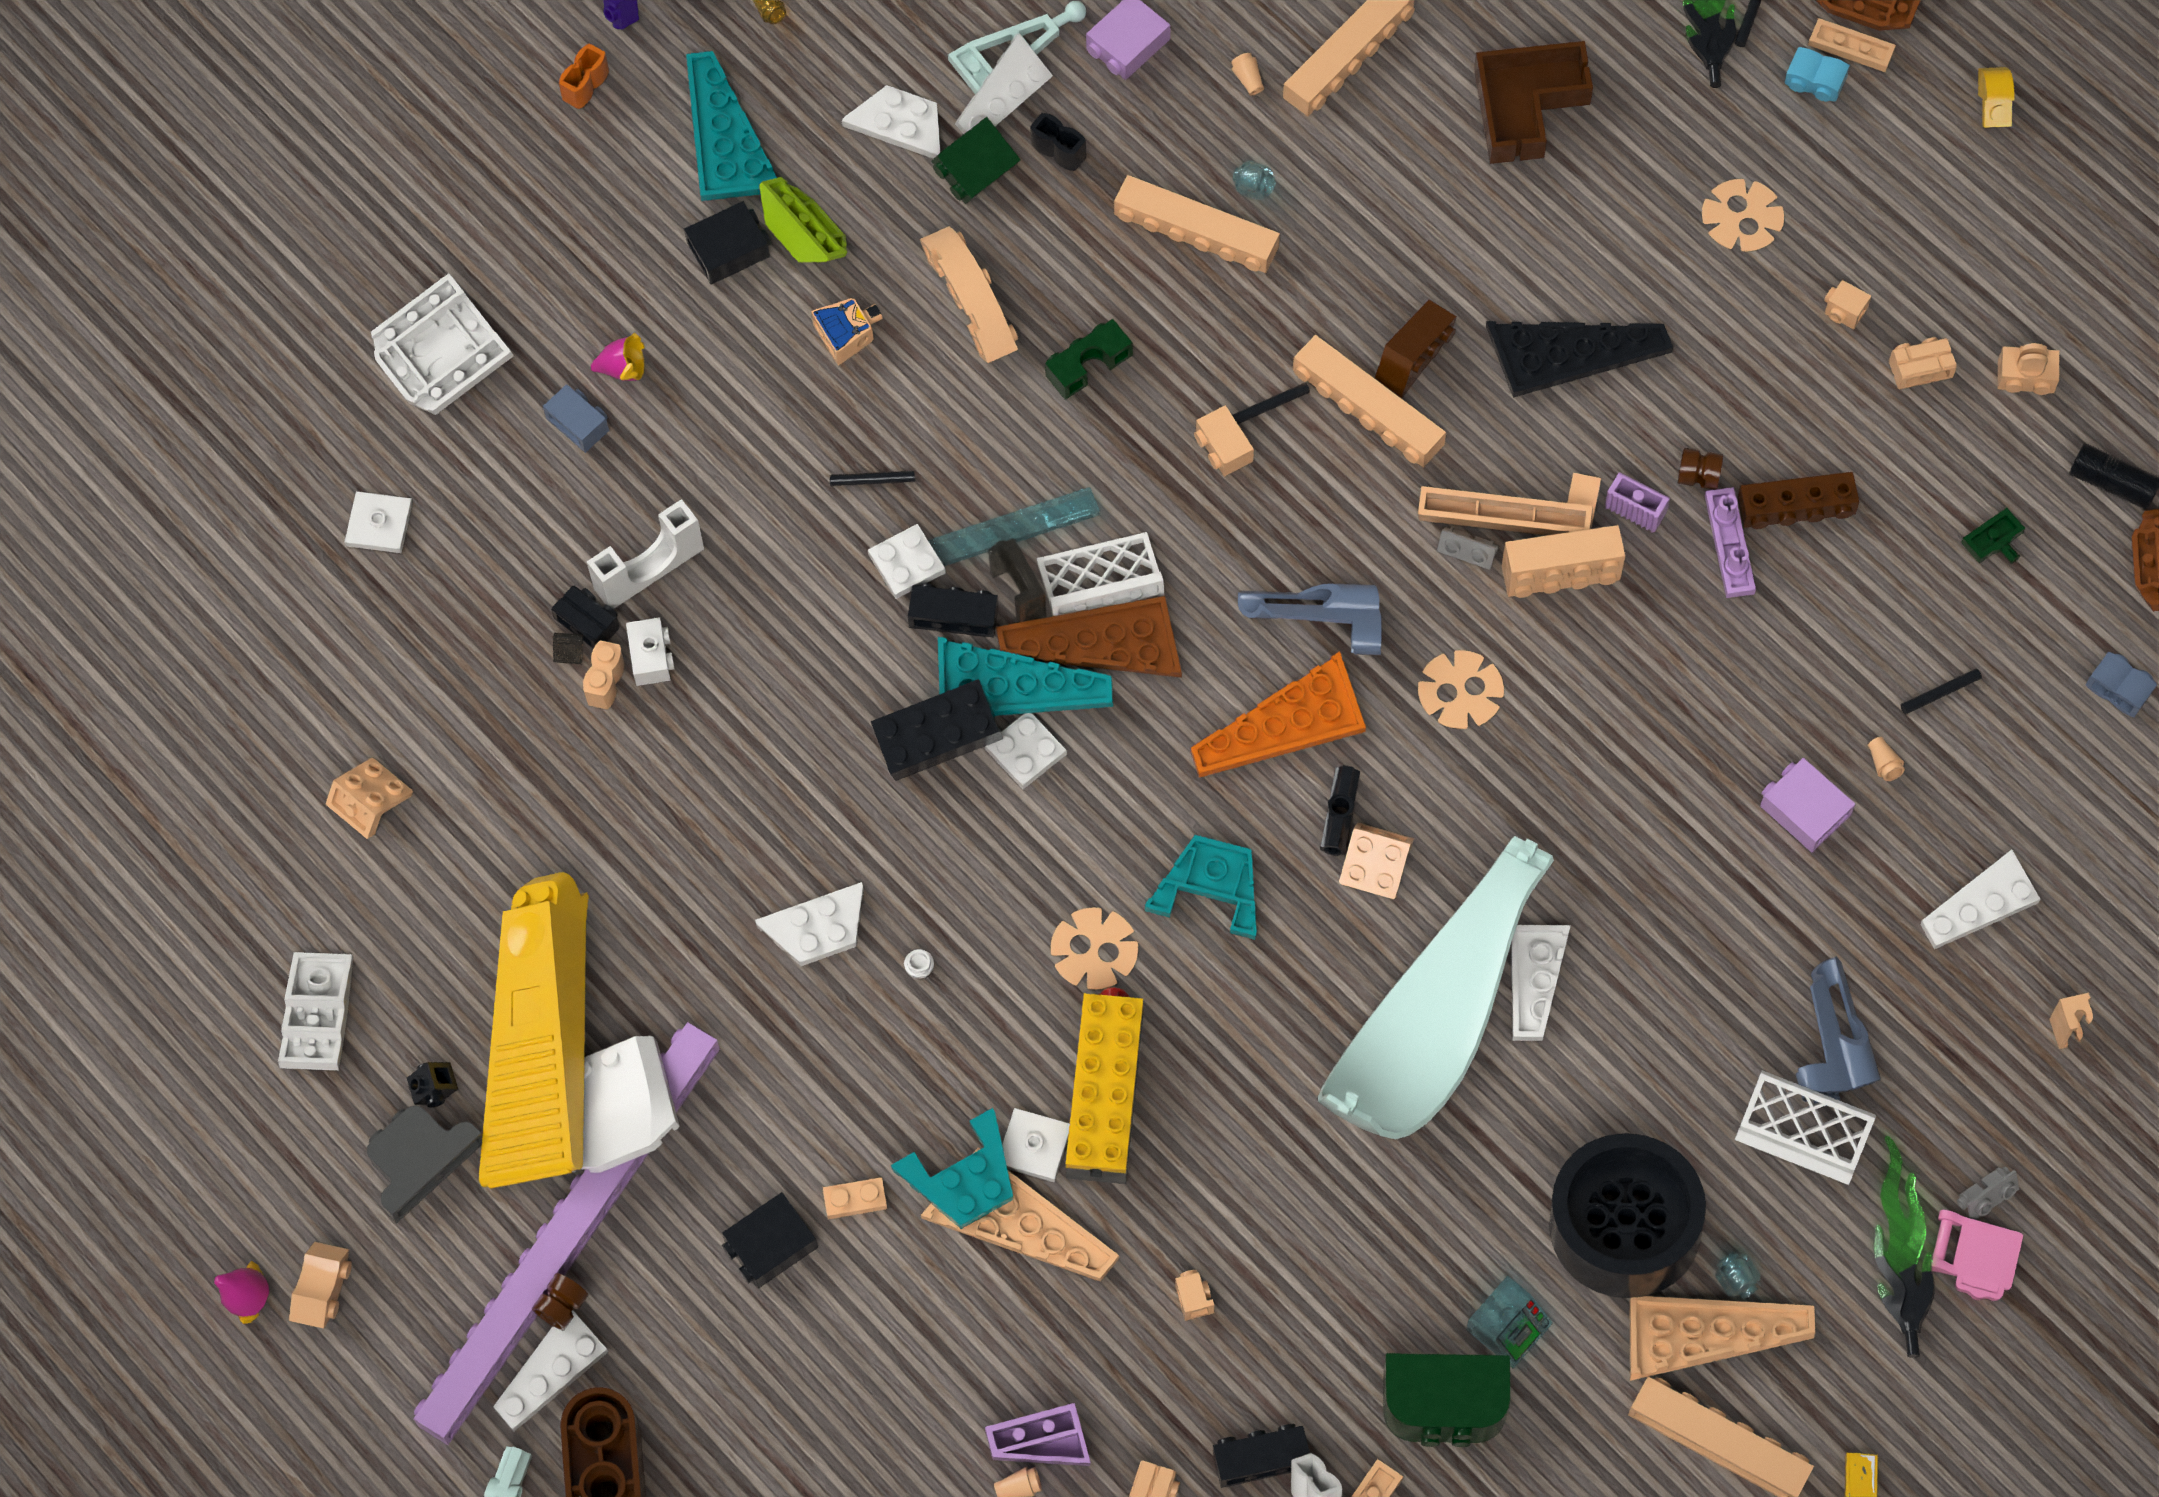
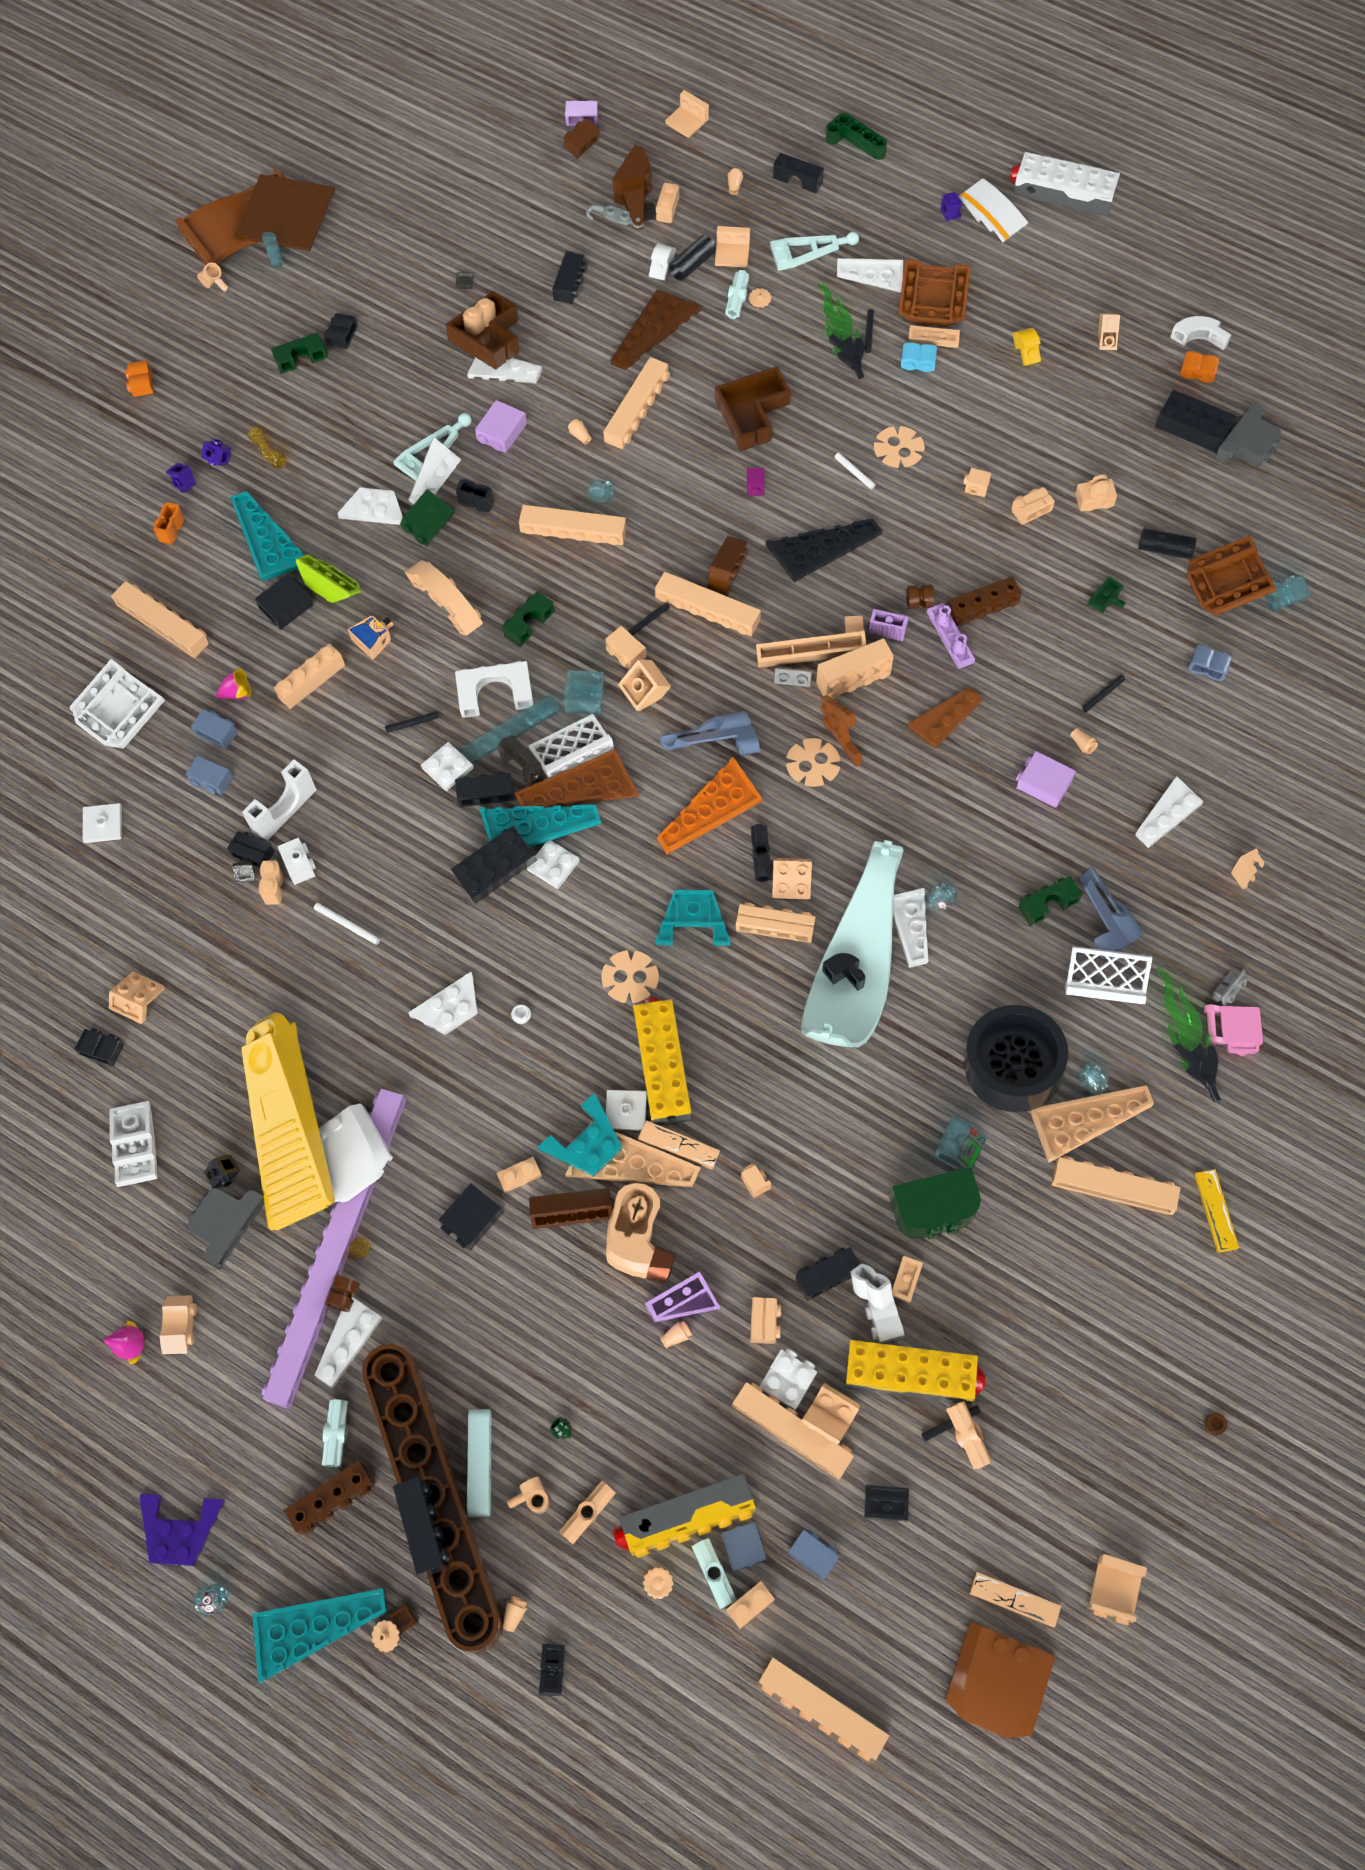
camera: 15 degrees left, 0 degrees up
(299, 857) = (99, 1047): none -> black brick
(536, 226) = (160, 619): none -> light nougat brick
(551, 489) = (209, 776): none -> sand blue brick
(601, 1244) = (360, 1247): none -> clear yellow plate
(699, 764) = (346, 923): none -> white bar
(736, 370) = (309, 676): none -> light nougat brick
(916, 1265) = (570, 1208): none -> reddish brown brick
(978, 436) = (472, 680): none -> white arch
(991, 1325) = (631, 1232): none -> light nougat piece
(1097, 1215) = (679, 1145): none -> light nougat tile
(1144, 498) = (585, 691): none -> clear light blue piece
(1236, 505) = (644, 684): none -> light nougat slope
(1331, 922) = (775, 922): none -> light nougat brick
(1412, 1013) = (842, 966): none -> black brick
(1498, 220) = (755, 481): none -> magenta brick
(1514, 644) = (837, 721): none -> dark orange wing
(1593, 945) = (942, 896): none -> clear light blue head
(1660, 238) = (854, 470): none -> white bar
(1680, 671) = (945, 718): none -> dark orange wing
(1778, 983) = (1062, 891): none -> dark green arch
(2135, 101) = (1108, 331): none -> light nougat slope

